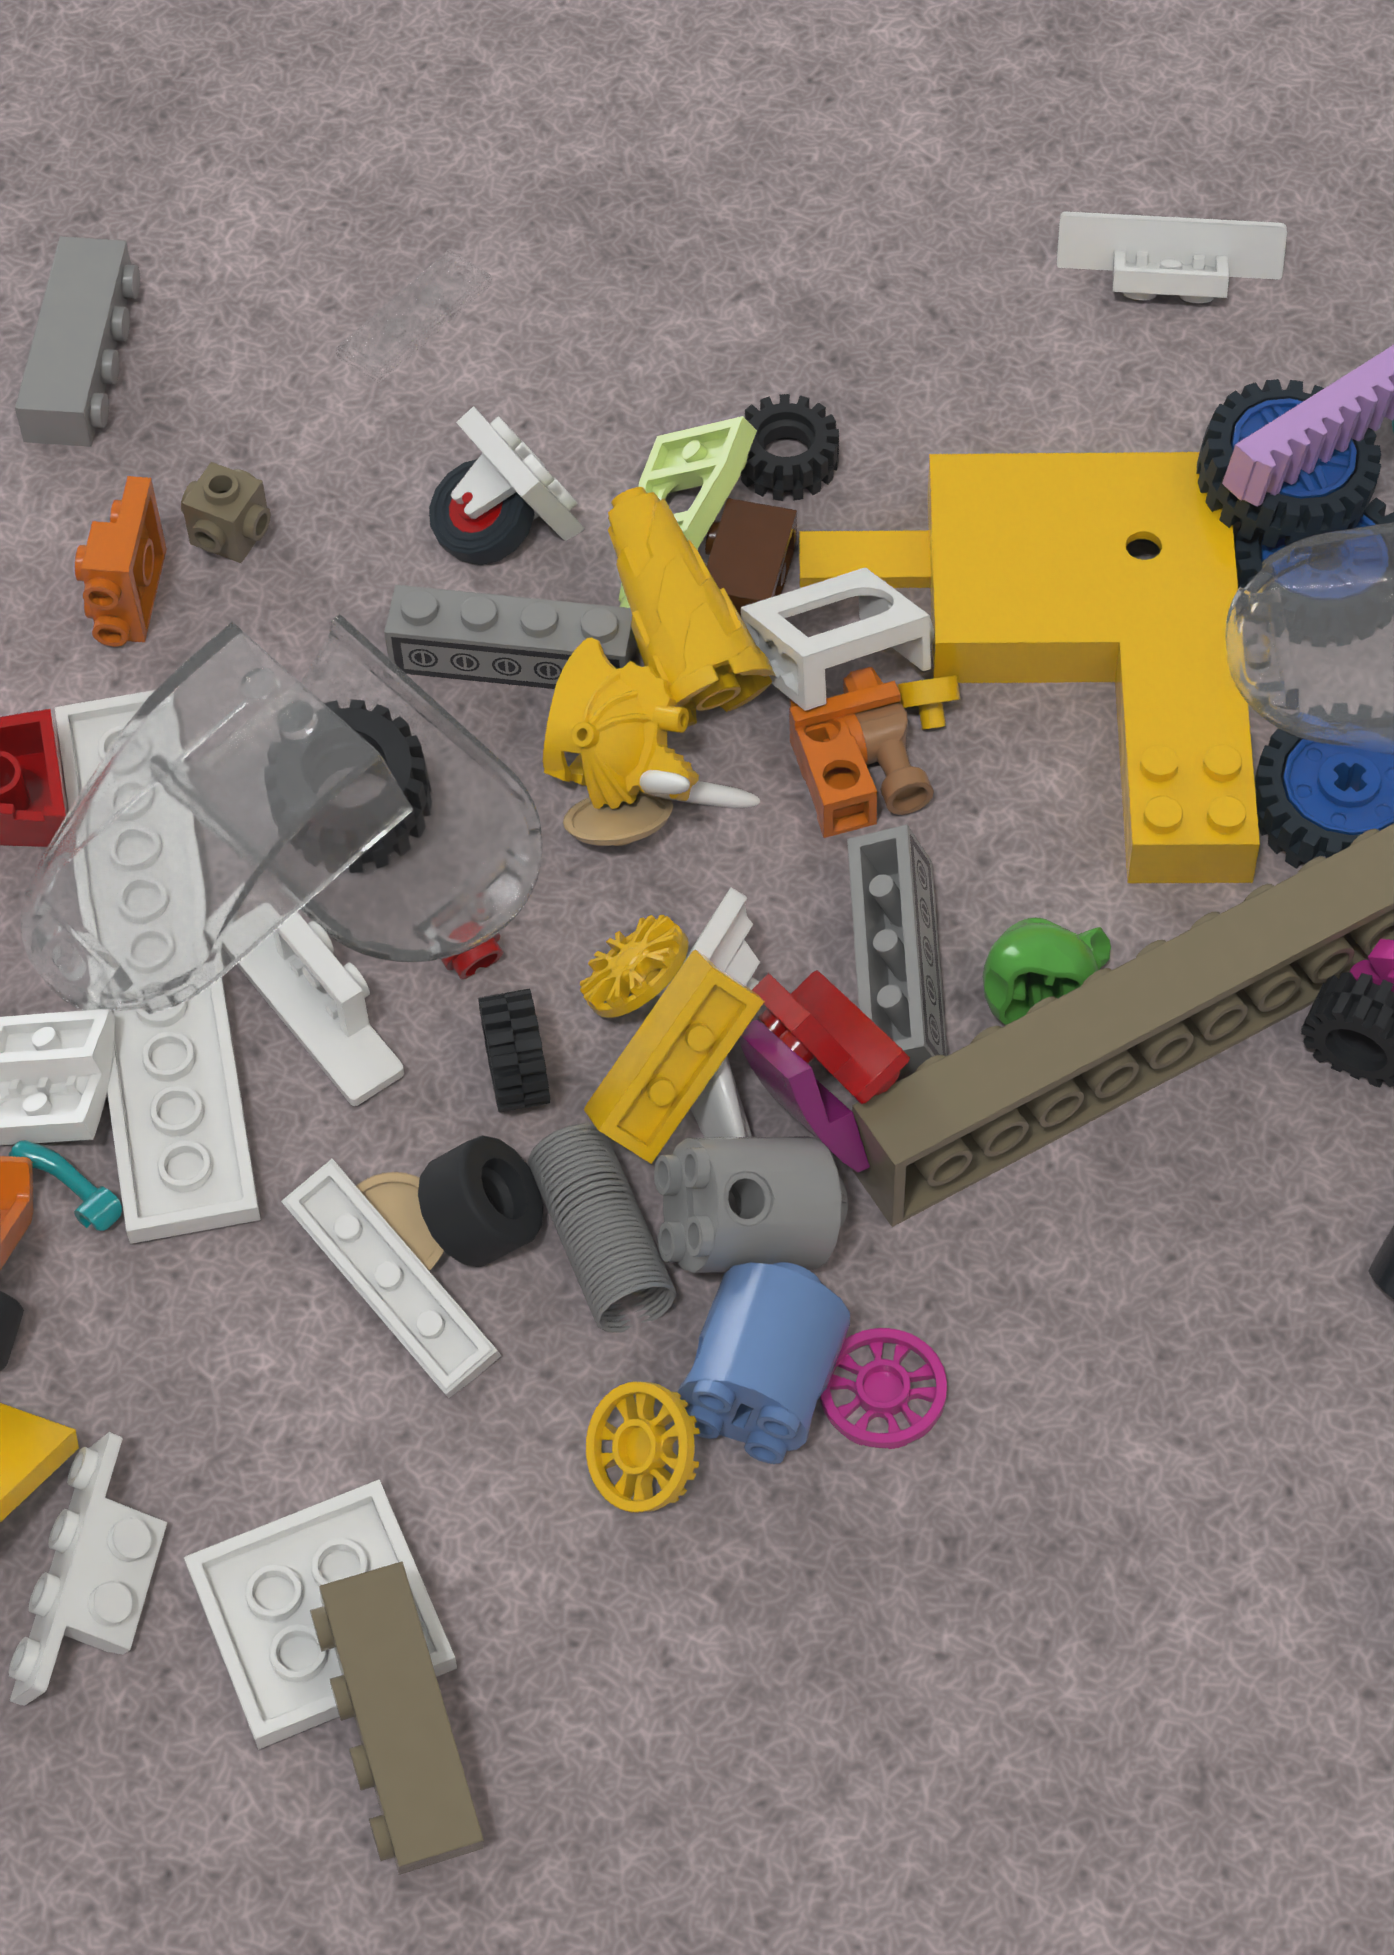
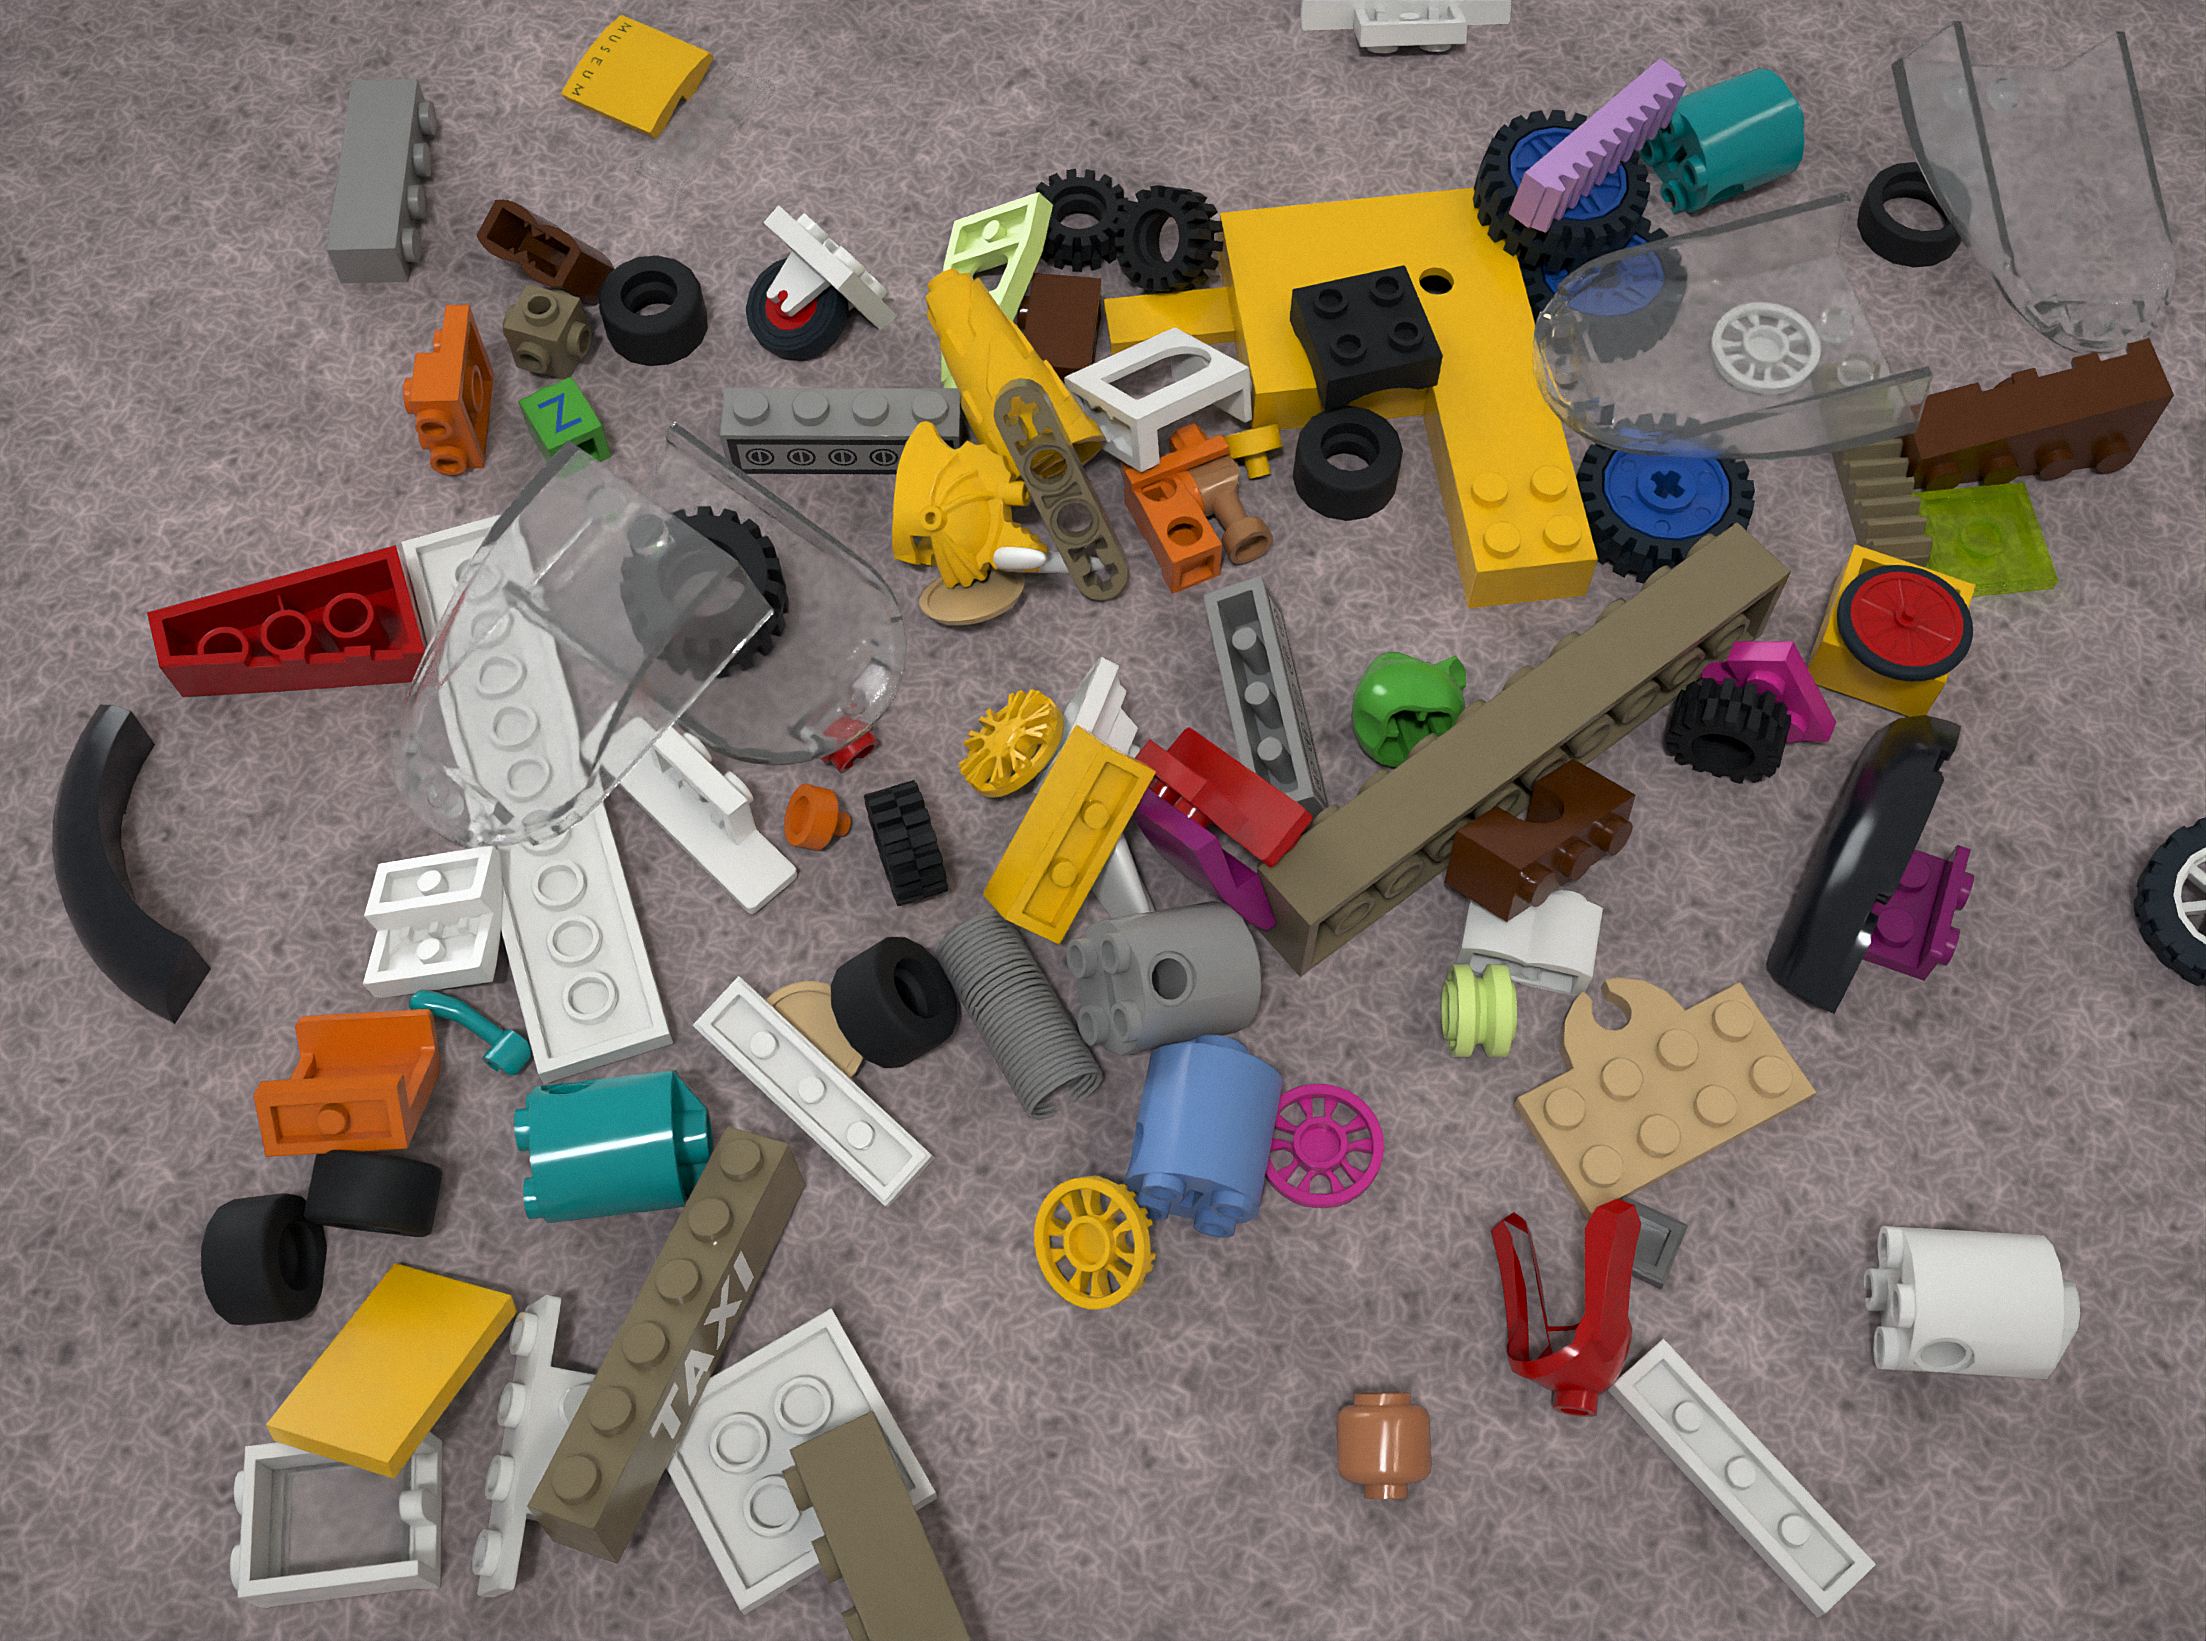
camera: 10 degrees left, 5 degrees up
(191, 1302) = (612, 1146): none -> teal cylinder
(220, 1487) = (668, 1346): none -> dark tan brick
(229, 596) = (561, 415): none -> bright green brick
(233, 430) = (544, 251): none -> reddish brown brick
(342, 526) = (658, 337): none -> black tyre
(350, 255) = (636, 75): none -> yellow slope
(428, 1019) = (814, 818): none -> orange tile
(726, 718) = (1067, 488): none -> dark tan beam
(849, 470) = (1143, 235): none -> black tyre
(896, 1667) = (1383, 1443): none -> nougat head
(1018, 753) = (1342, 492): none -> black tyre
(1055, 594) = (1365, 335): none -> black brick
(1061, 1274) = (1479, 1010): none -> yellowish green wheel
(1116, 1133) = (1567, 829): none -> reddish brown arch
(1125, 1585) = (1604, 1333): none -> red piece
(1126, 1210) = (1542, 946): none -> white brick
(1190, 1516) = (1656, 1245): none -> flat silver tile
(1233, 1372) = (1657, 1089): none -> tan plate
(1245, 1743) = (1742, 1478): none -> white plate

